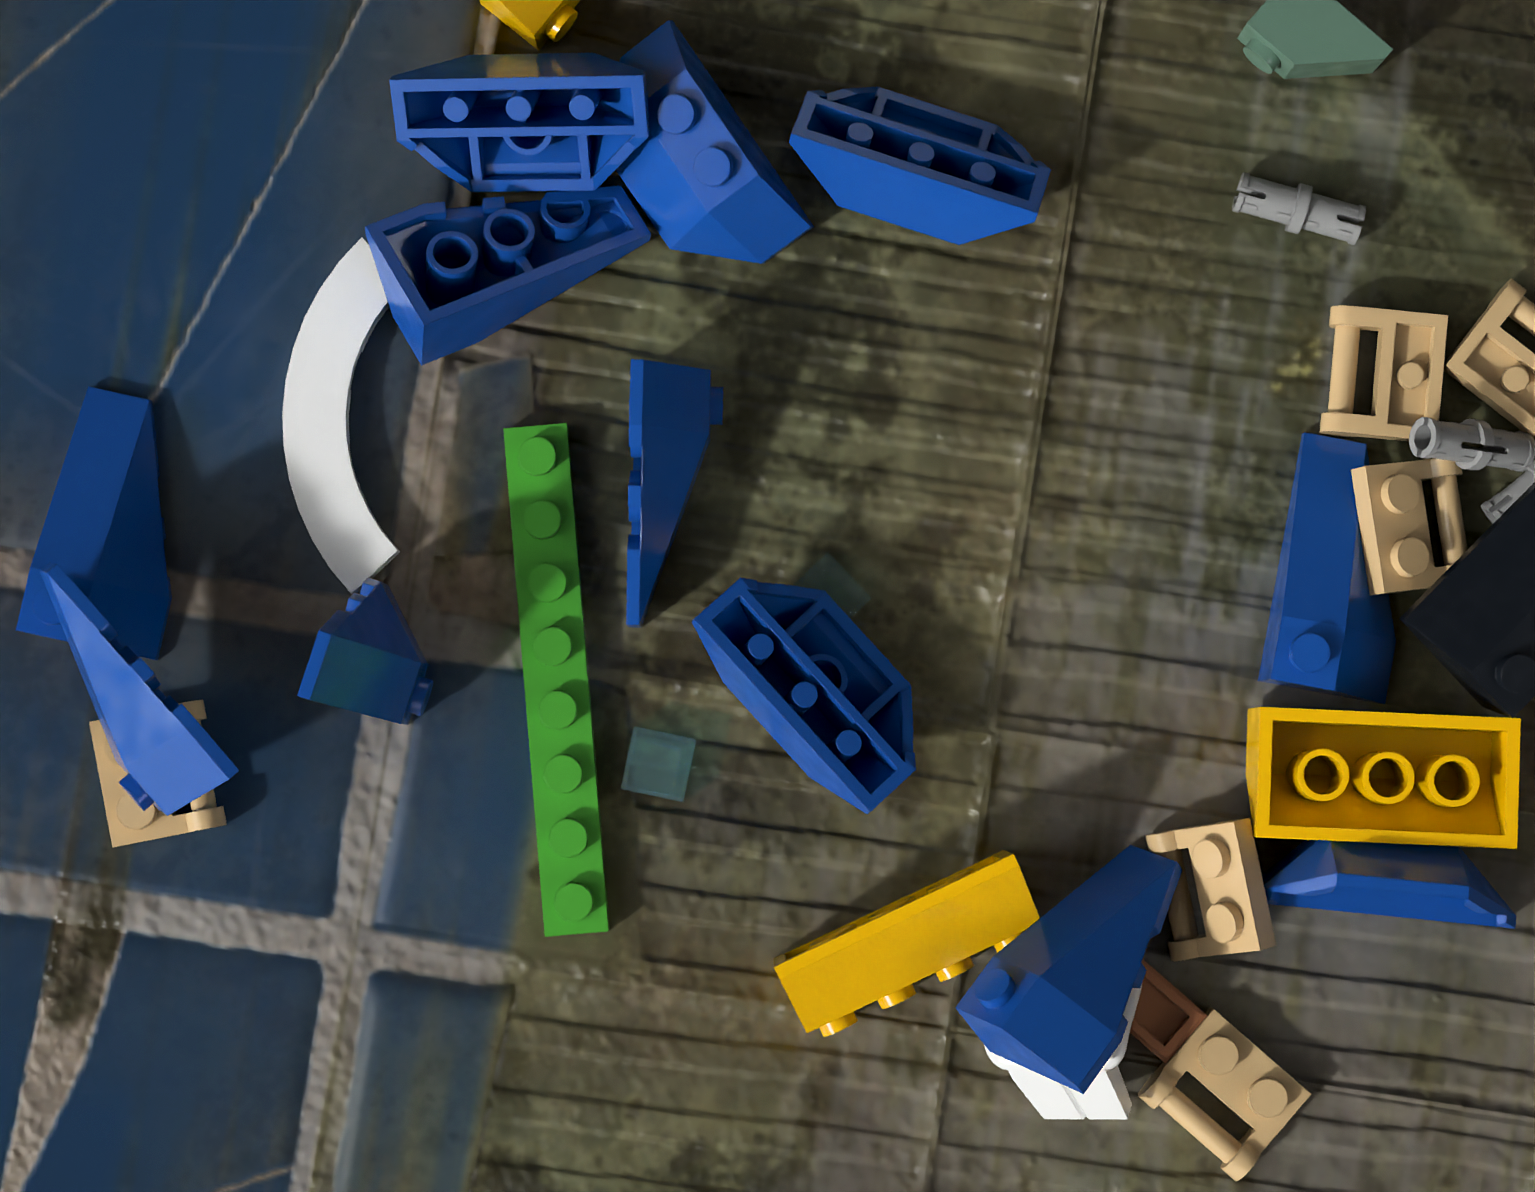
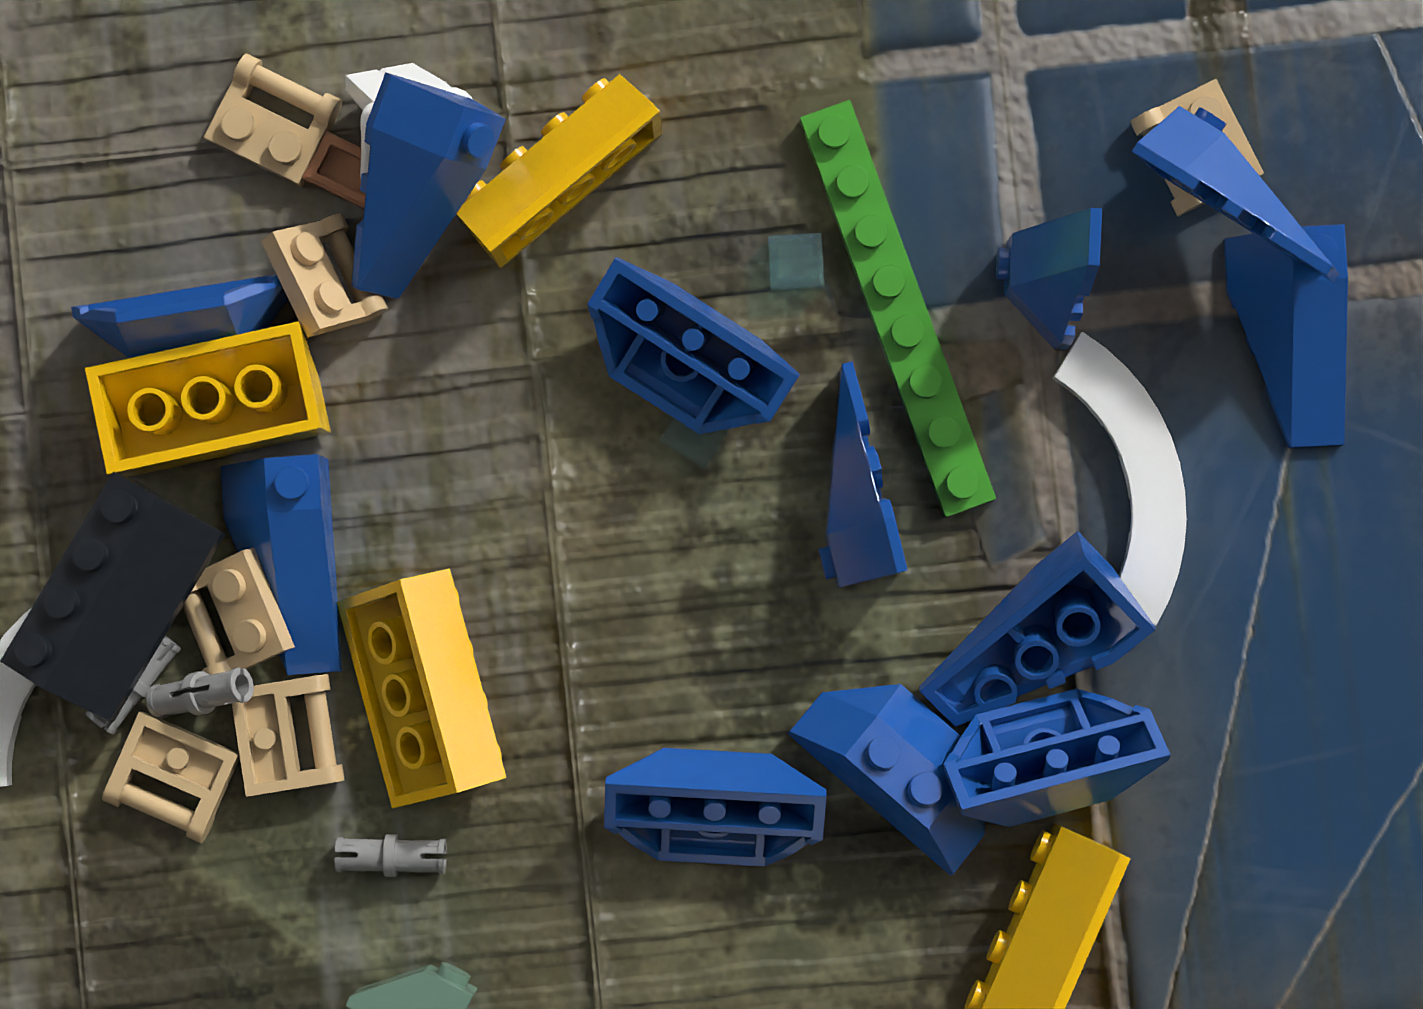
camera: 170 degrees right, 0 degrees up
(1217, 384) = (421, 688): none -> yellow slope

